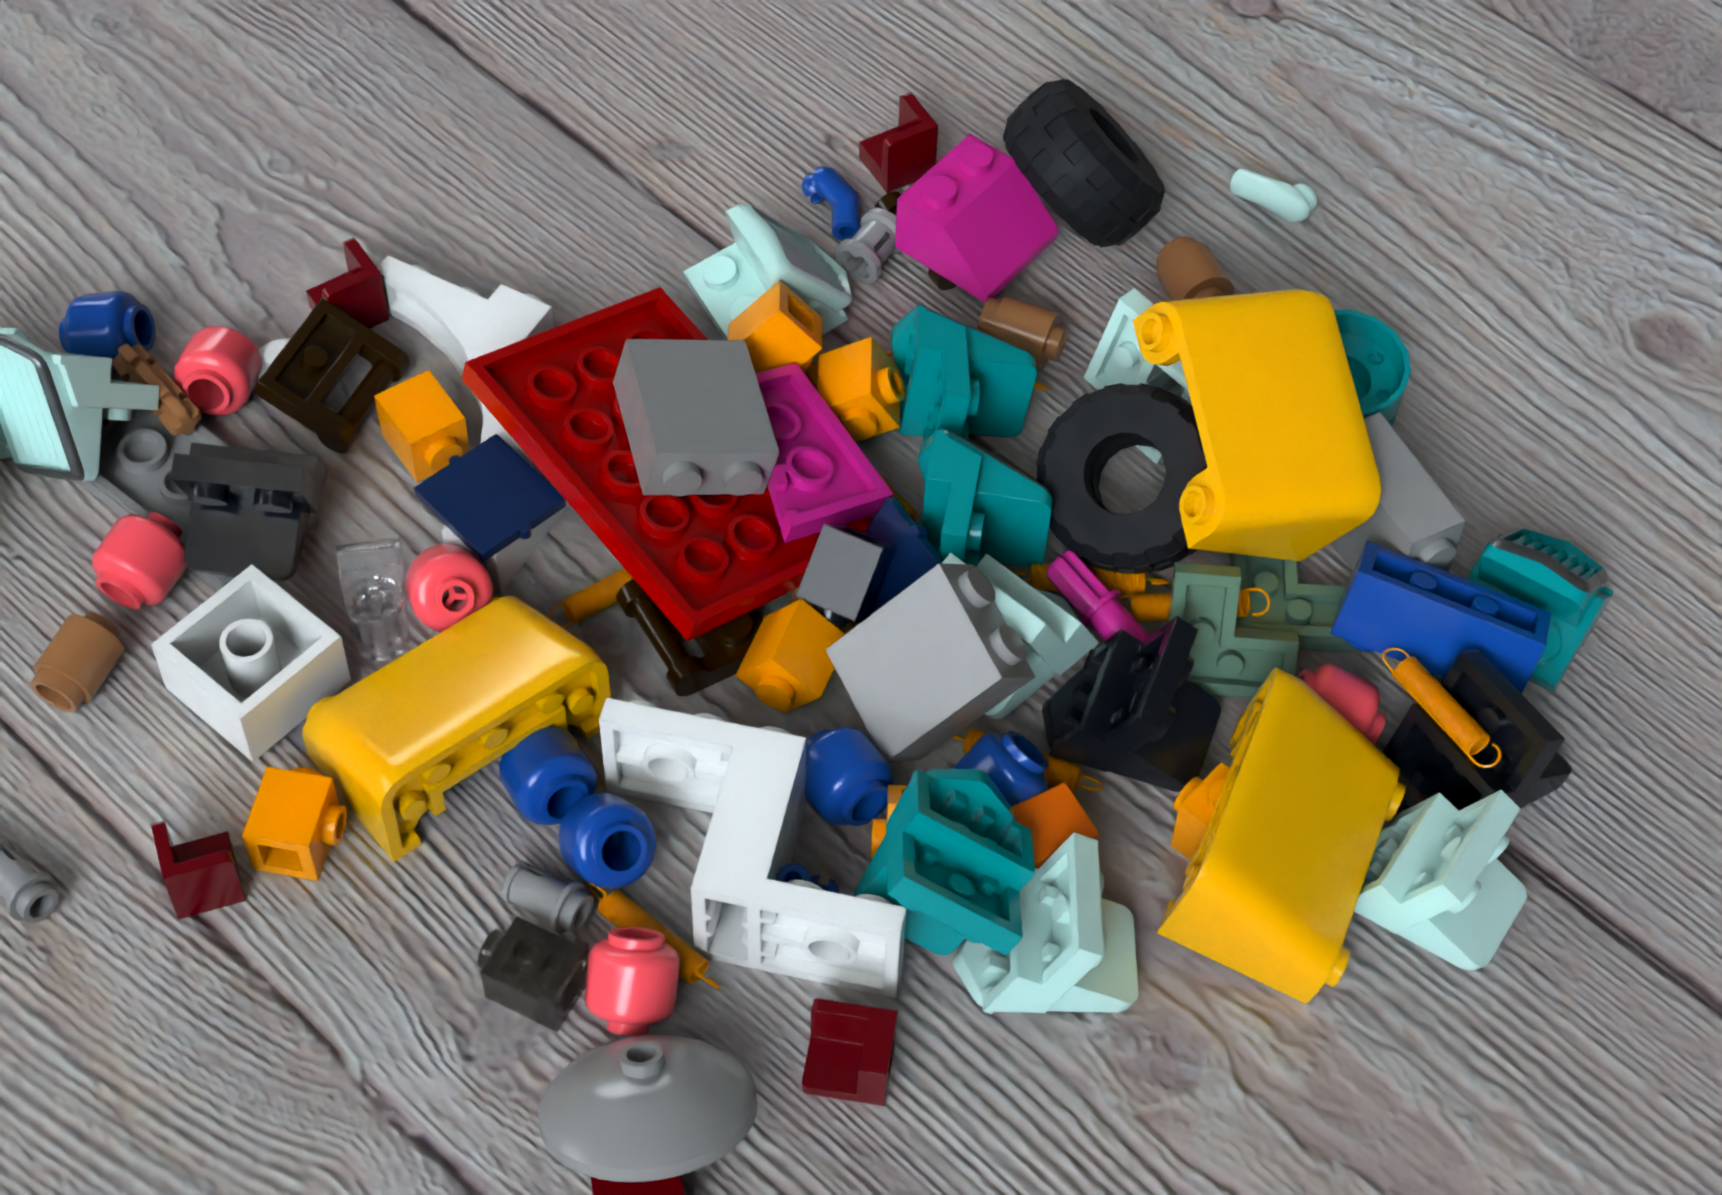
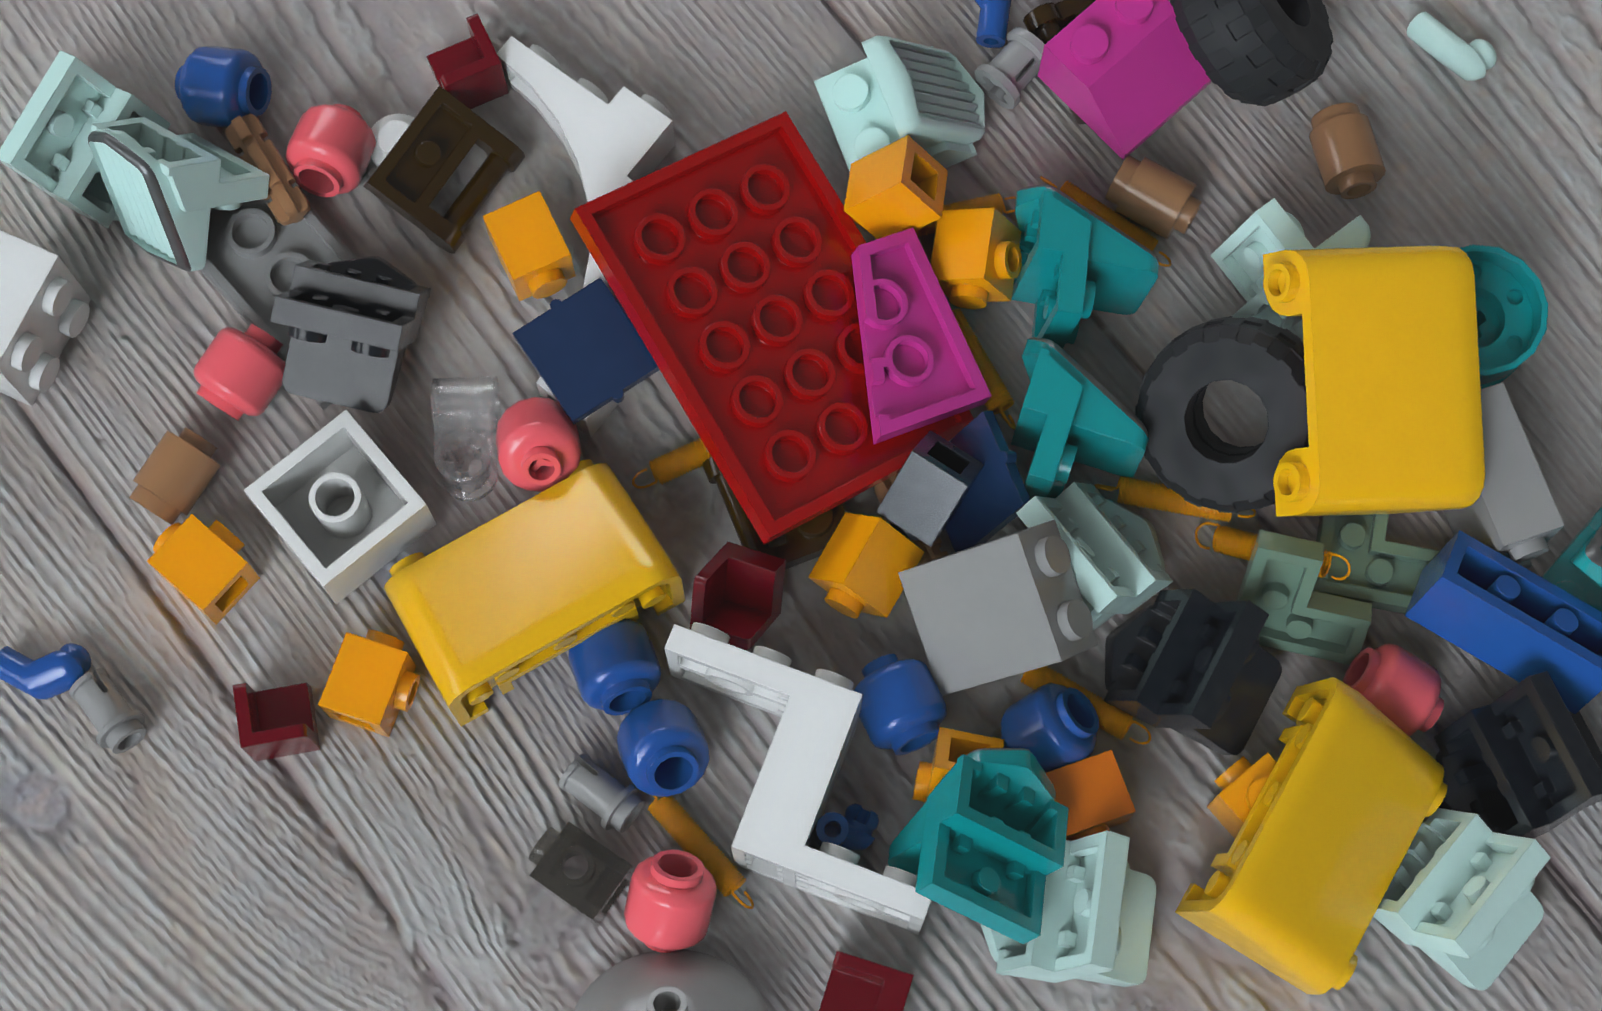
camera: 10 degrees right, 20 degrees up
(112, 737) = (204, 565): none -> light orange brick
(670, 681) = (739, 593): none -> dark red panel
(695, 417) = (800, 295): light grey brick -> none
(1092, 598) = (1179, 539): dark pink axle -> none
(1441, 706) = (1497, 721): light orange piece -> none

